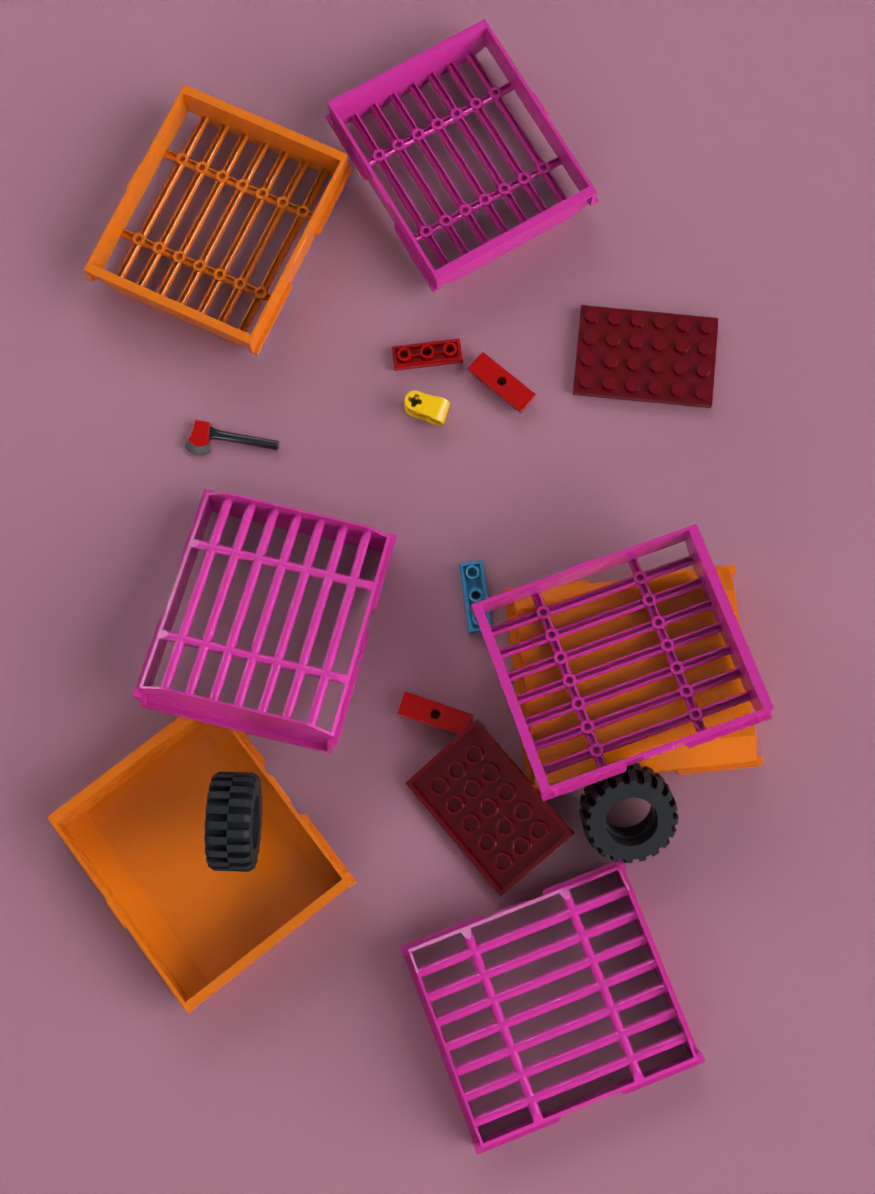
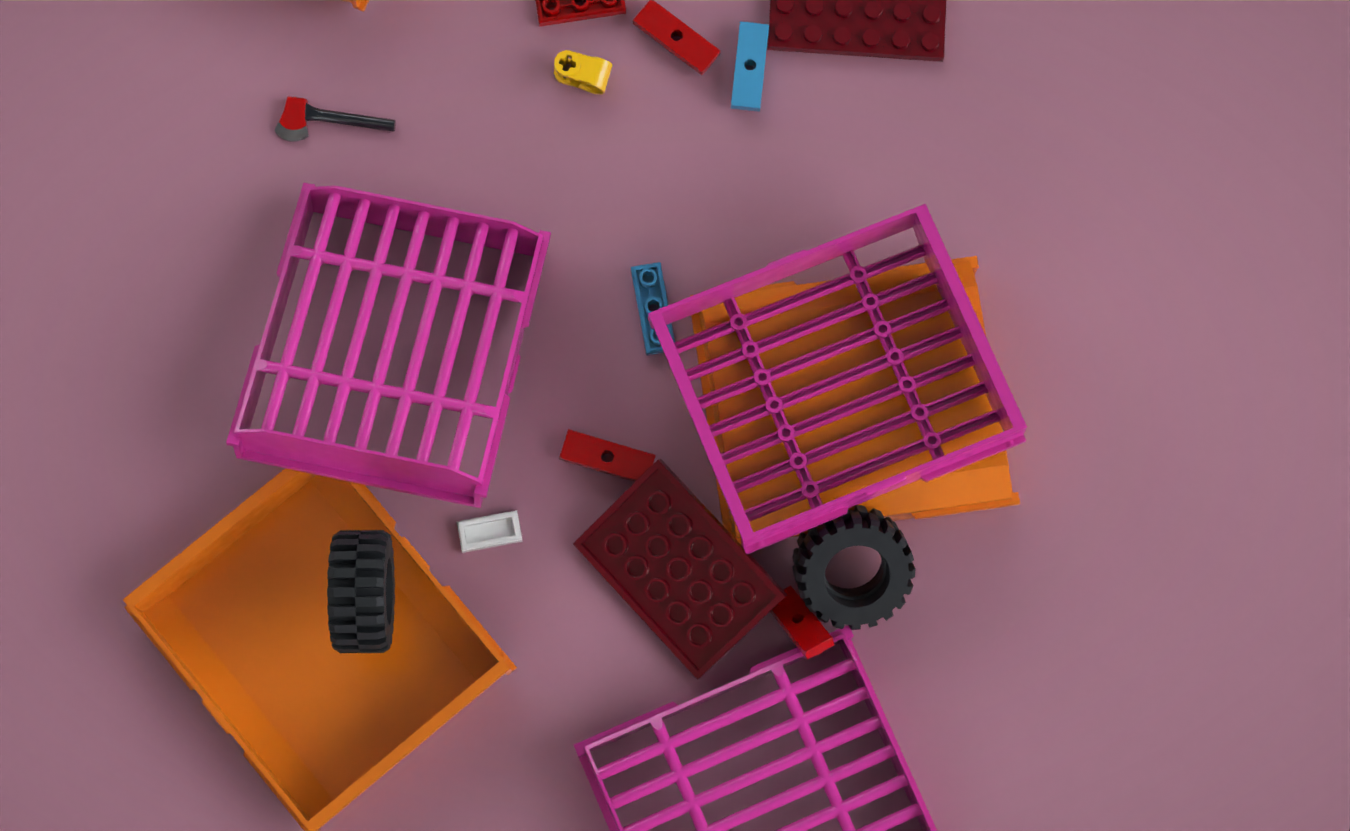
camera: 10 degrees left, 0 degrees up
(339, 770) = (489, 531): none -> white tile
(559, 395) = (750, 51): none -> dark azure tile
(585, 857) = (802, 625): none -> red tile

